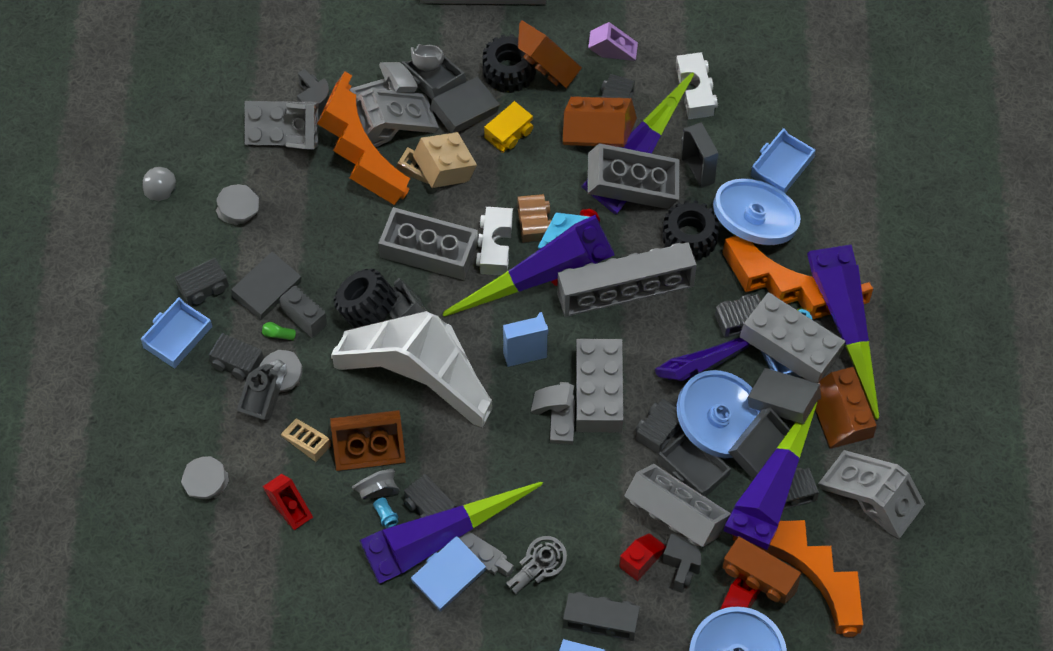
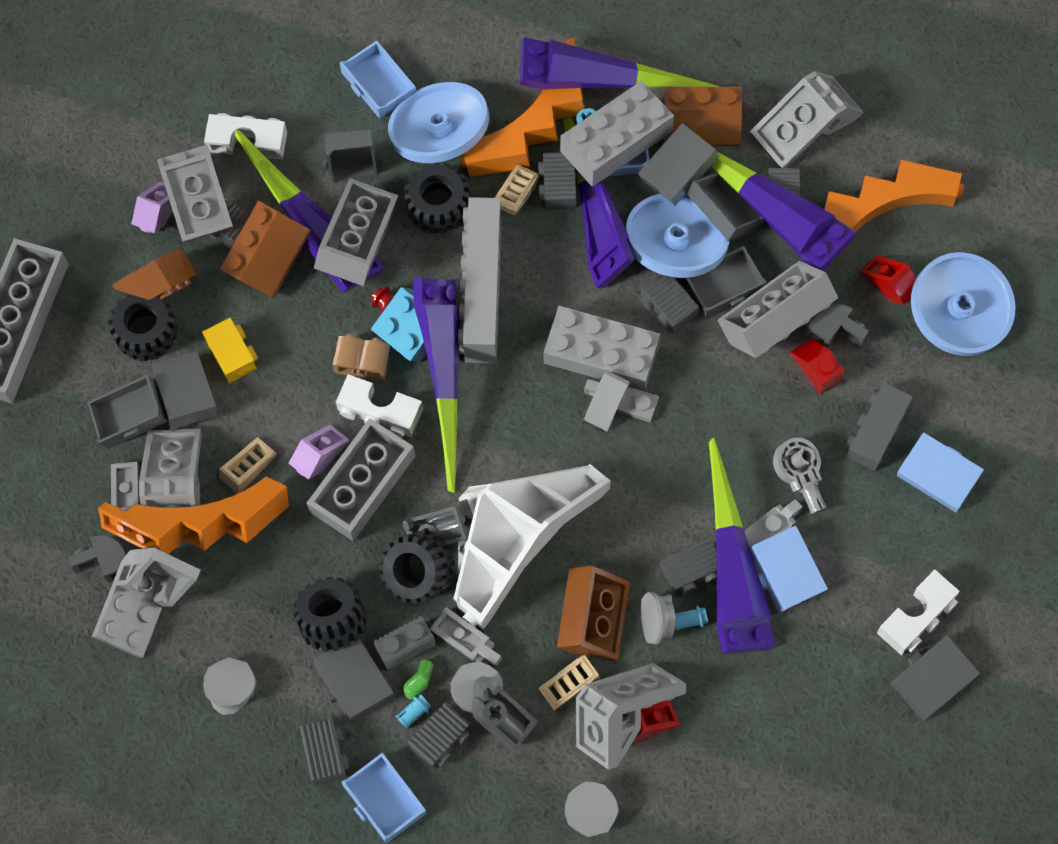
camera: 70 degrees left, 10 degrees up
(158, 183) = (163, 773): light grey hair -> none
(255, 336) = (413, 711): none -> medium azure pin
(295, 466) = (600, 708): none -> light grey bracket
(309, 251) = (336, 629): none -> black tyre
(320, 354) = (465, 638): none -> light grey hinge
(399, 76) = (114, 451): light grey slope -> none
(427, 57) = (106, 410): light grey hair -> none
(443, 206) = (318, 451): none -> lavender slope
(444, 159) = (255, 430): tan brick -> none
(525, 340) = (531, 404): light blue container -> none
(626, 56) = (195, 193): none -> light grey bracket
(731, 285) = (518, 188): none -> tan slope
(761, 571) = (880, 250): dark orange slope -> none

